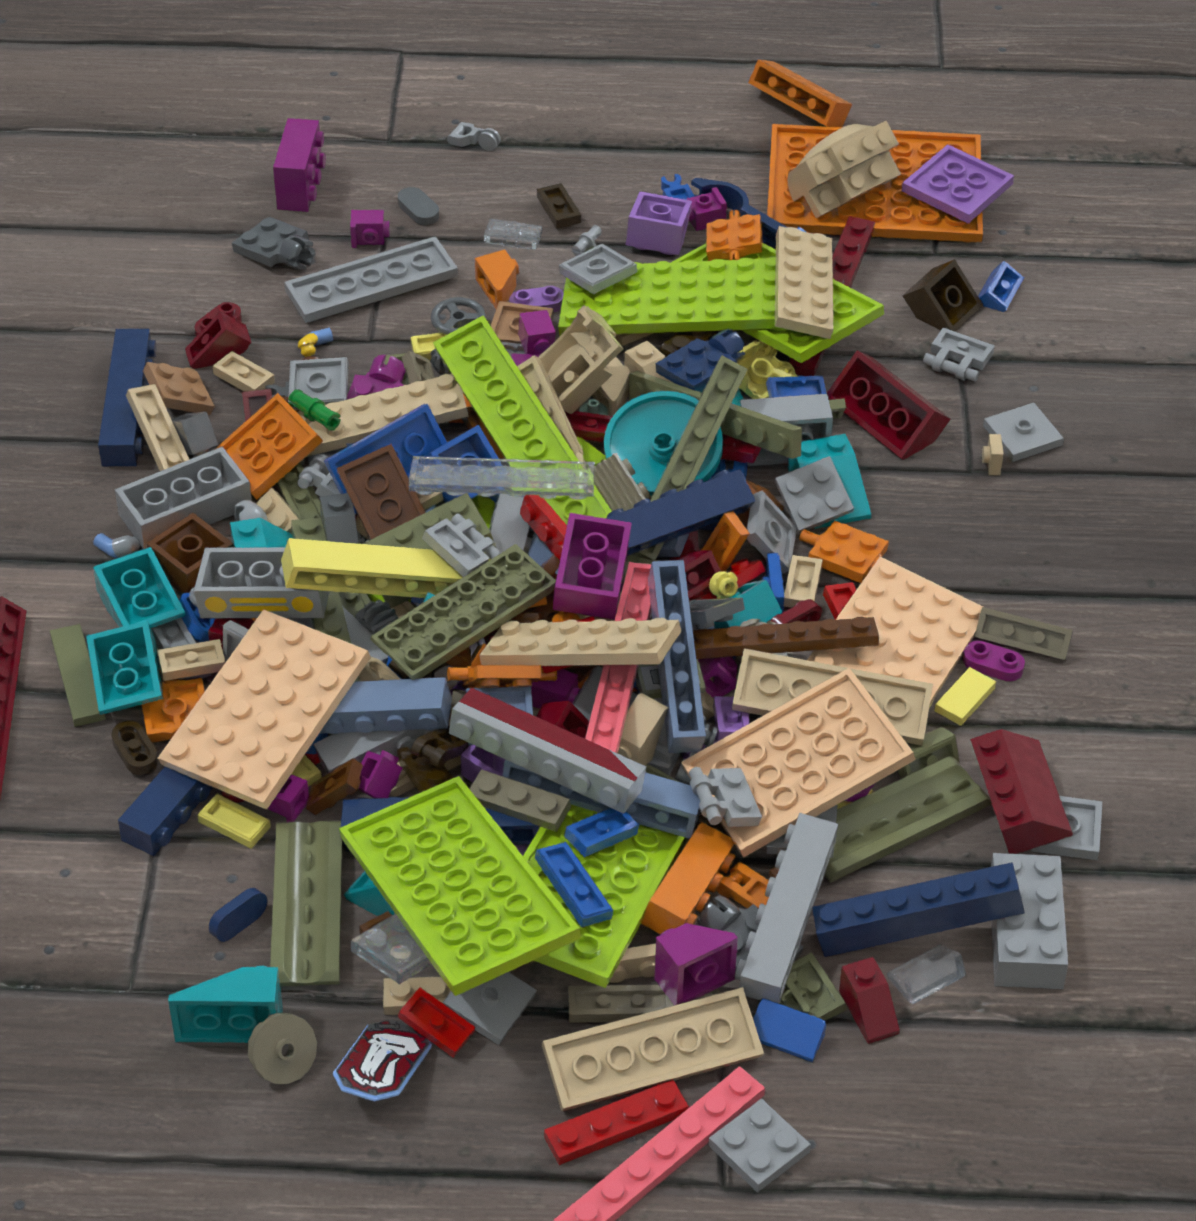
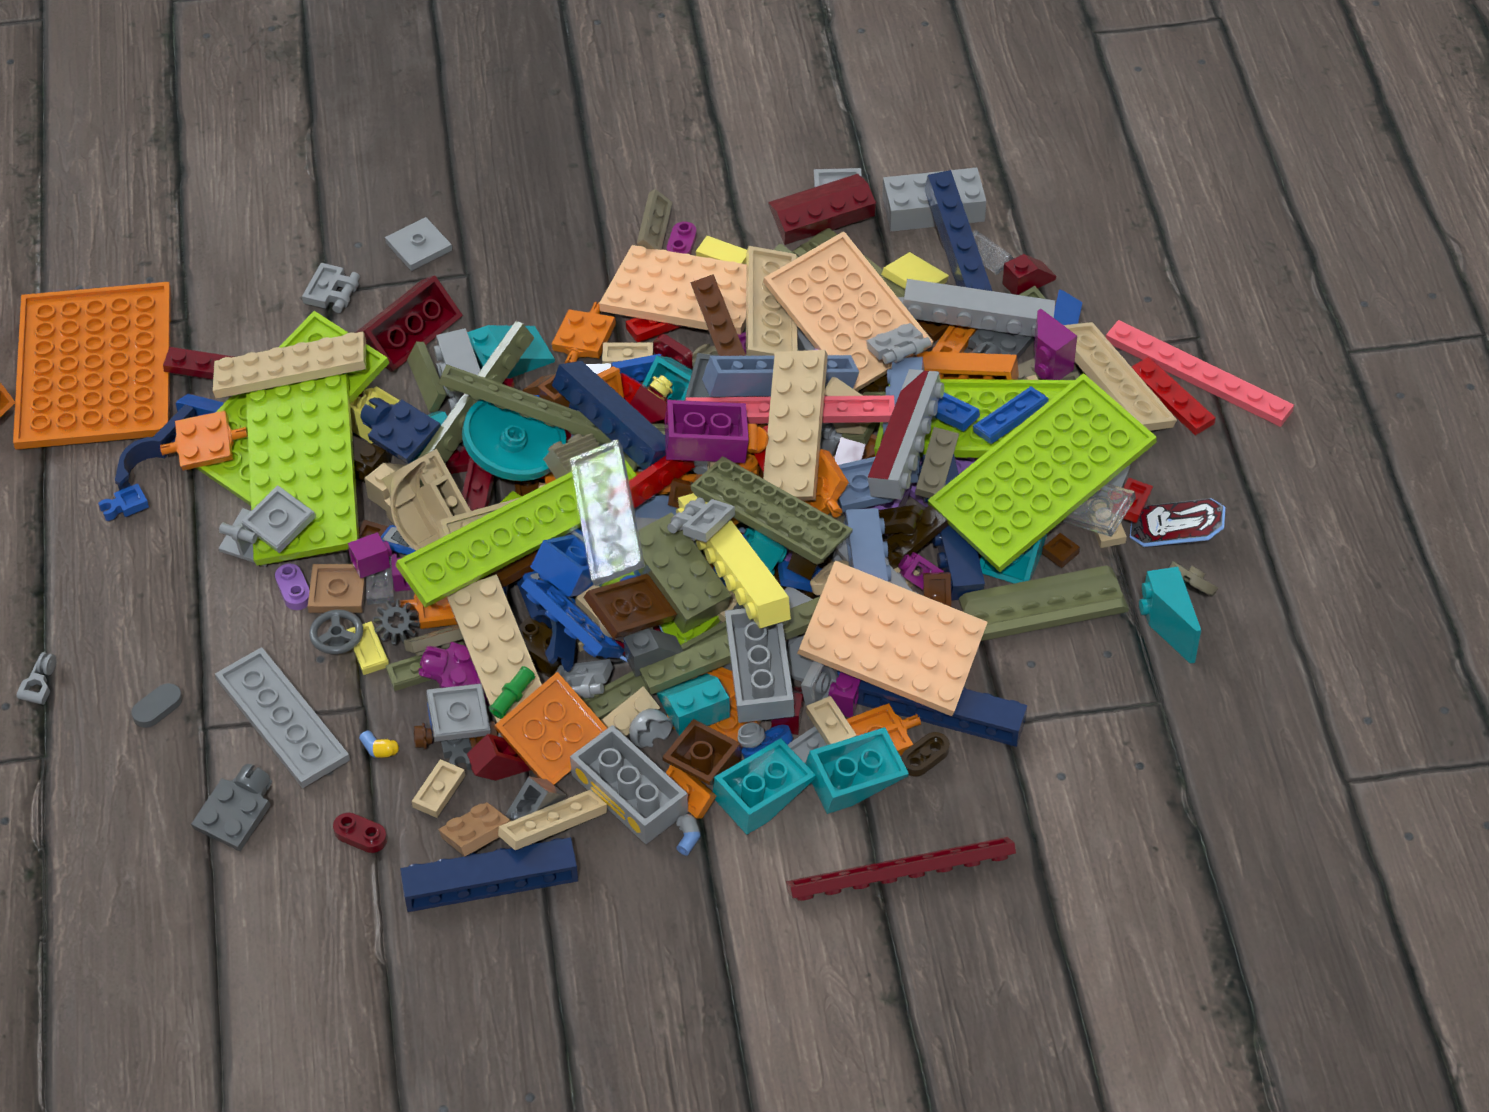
camera: 100 degrees left, 5 degrees up
(76, 674) = (850, 822): olive tile -> none
(218, 340) = (401, 818): dark red slope -> none
(234, 821) = (981, 670): light yellow tile -> none
(237, 914) = (1074, 641): dark blue tile -> none
(298, 165) = (119, 802): magenta brick -> none
(368, 227) = (205, 734): magenta brick -> none
(496, 275) = (272, 615): orange slope -> none
(513, 234) = (194, 621): clear plate -> none
(559, 205) = (150, 589): dark brown plate -> none
(574, 609) = (757, 438): none -> orange plate
(658, 223) = (181, 501): medium lavender slope -> none
(707, 209) = (149, 476): magenta brick -> none
(759, 1145) = (1162, 319): light grey plate -> none
(795, 386) = (397, 384): blue plate -> none
(814, 494) = (541, 355): light grey plate -> none
(853, 161) = (112, 351): tan piece -> none
(883, 866) = (913, 268): none -> light yellow tile
(943, 297) = (258, 302): dark brown slope -> none
(957, 183) = (107, 296): medium lavender plate -> none
(993, 454) = (456, 253): tan plate -> none
(1000, 287) = (232, 273): blue slope -> none

